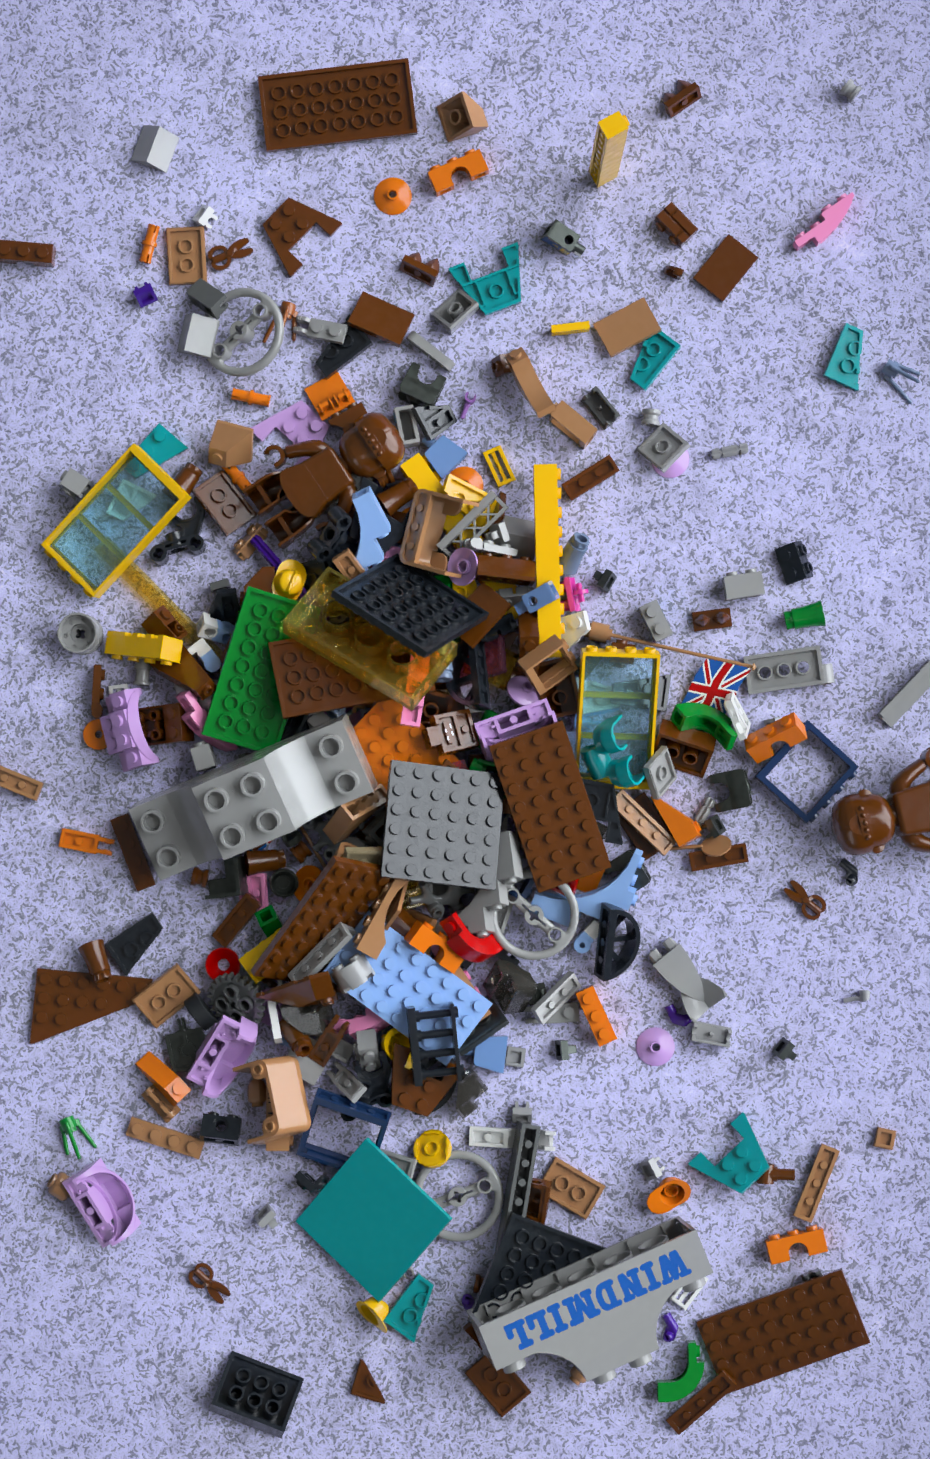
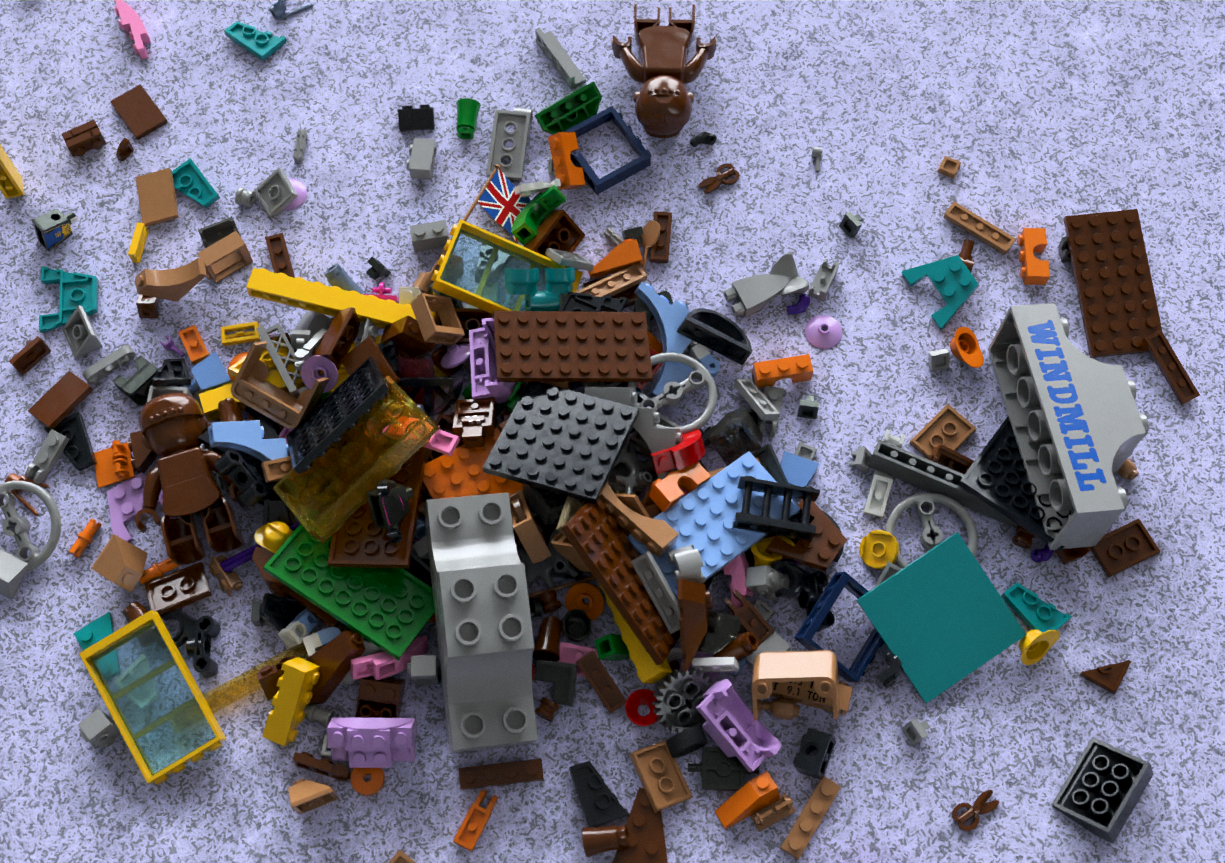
camera: 70 degrees left, 20 degrees down
(69, 689) = (310, 795): none -> medium nougat slope
(70, 629) = (244, 761): light grey wheel -> none
(331, 684) = (389, 506): none -> pearl dark grey torso
(347, 1082) = (795, 610): light grey hinge -> none
(468, 1090) = (834, 501): clear smoke piece -> none
(474, 425) = (193, 344): none -> orange plate
(544, 594) = (372, 310): medium blue torso -> none
(681, 1386) = (1150, 378): green arch -> none
(711, 619) = (444, 193): reddish brown tile -> none
(738, 788) = (603, 204): pearl dark grey piece -> none
(842, 722) = (570, 110): none -> green wedge

